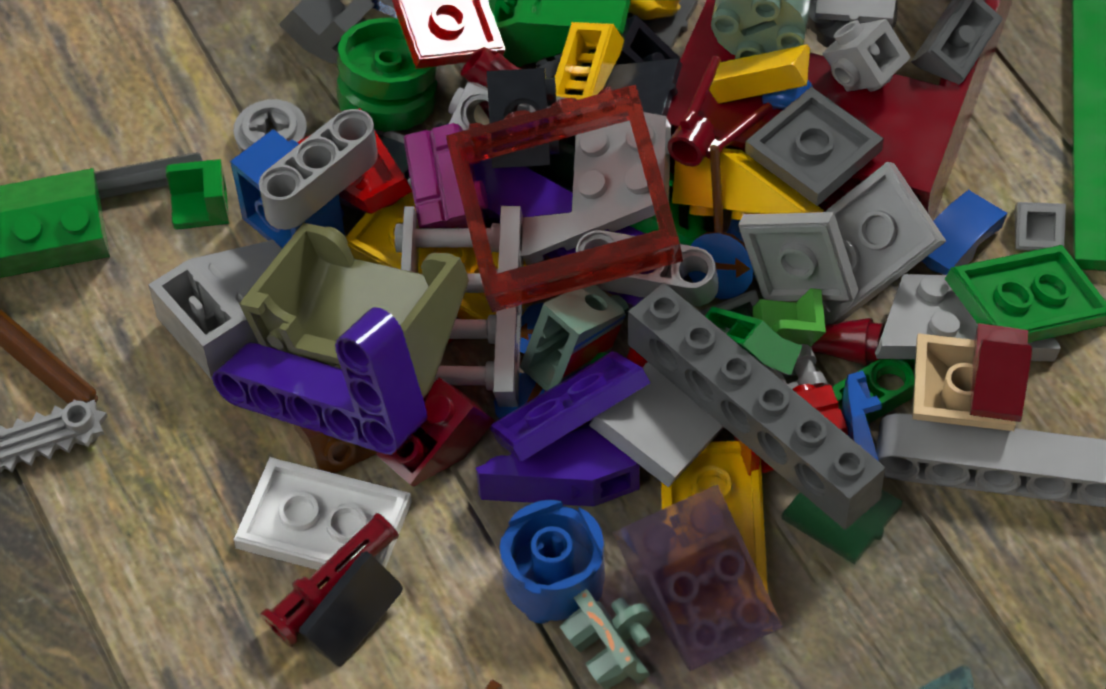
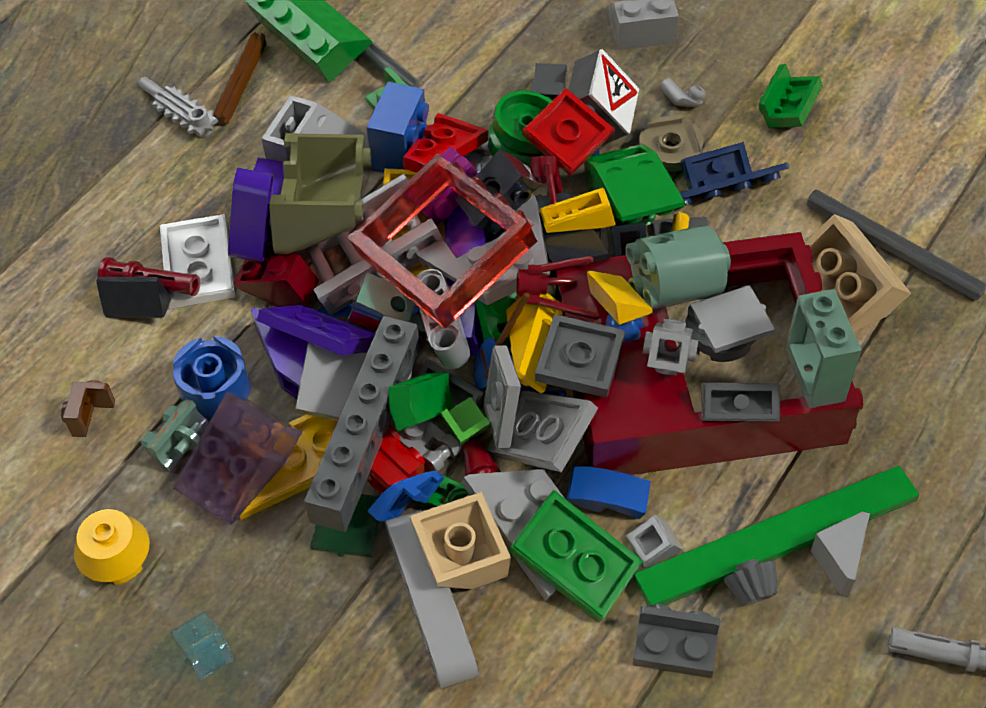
camera: 60 degrees right, 0 degrees up
(255, 120) = (463, 96): light grey gear -> none
(318, 169) = (395, 117): light grey beam -> none
(1000, 372) = (470, 551): dark red slope -> none

